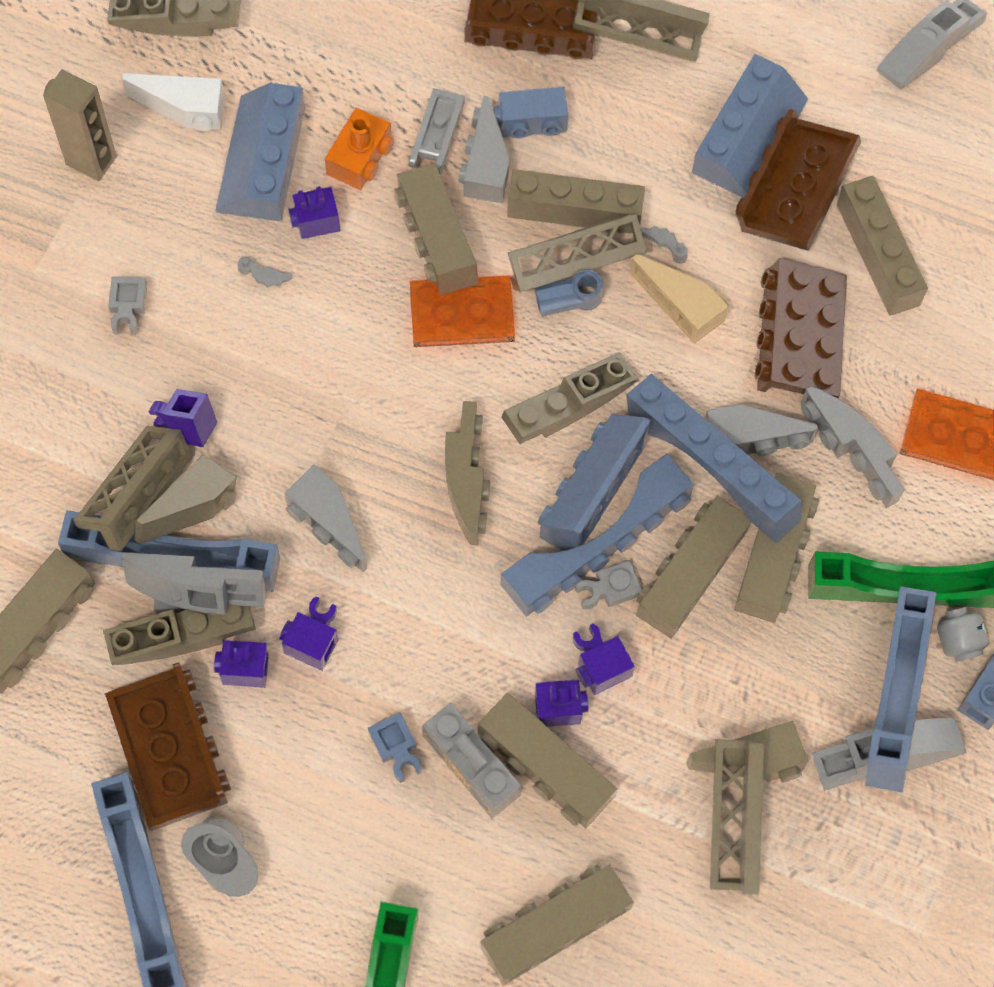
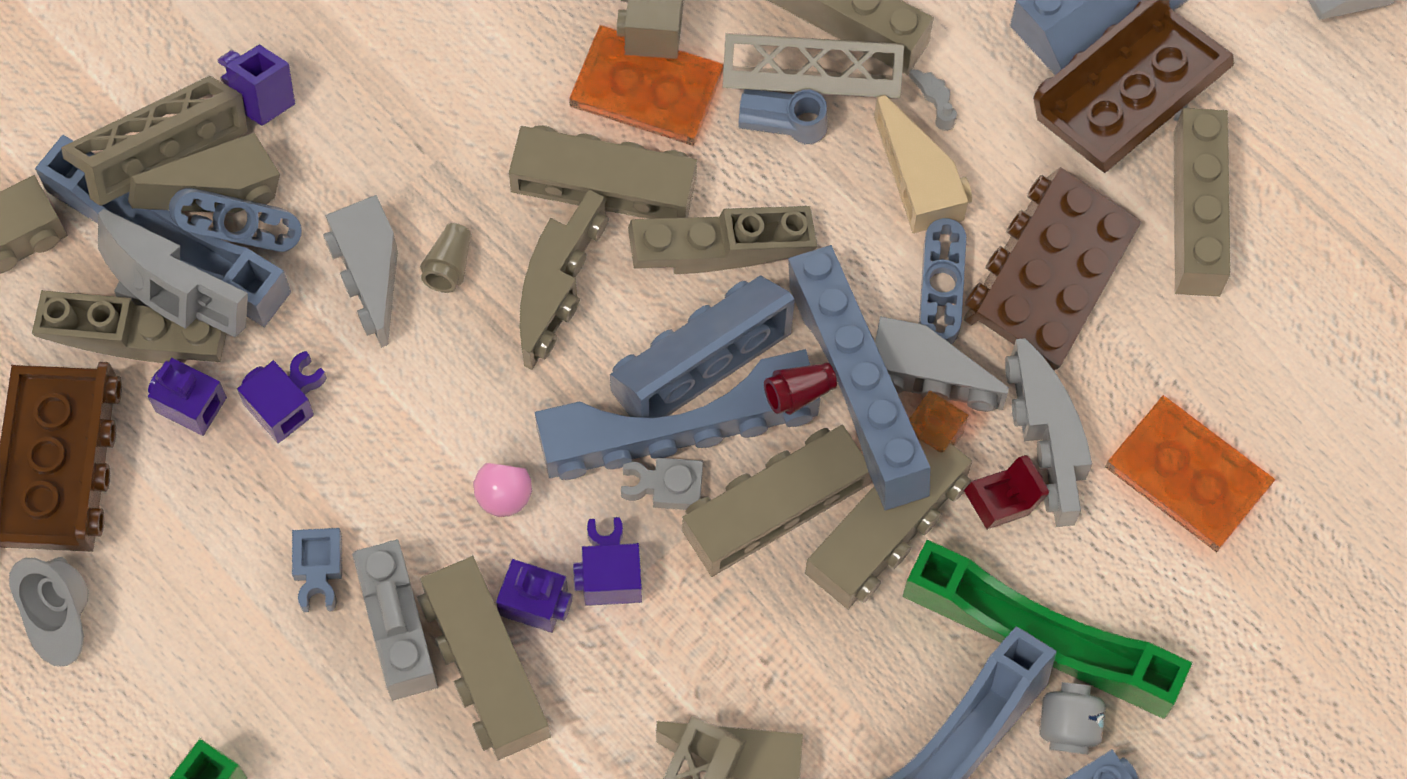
camera: 25 degrees right, 0 degrees up
(207, 515) = (206, 200): none -> sand blue beam
(382, 490) = (447, 259): none -> dark tan cone
(480, 379) = (626, 173): none -> dark tan brick
(501, 637) = (502, 489): none -> bright pink piece
(678, 481) = (798, 386): none -> dark red cone
(734, 355) = (956, 270): none -> sand blue beam
(782, 466) = (938, 422): none -> clear orange bracket
(847, 497) = (1007, 493): none -> dark red bracket

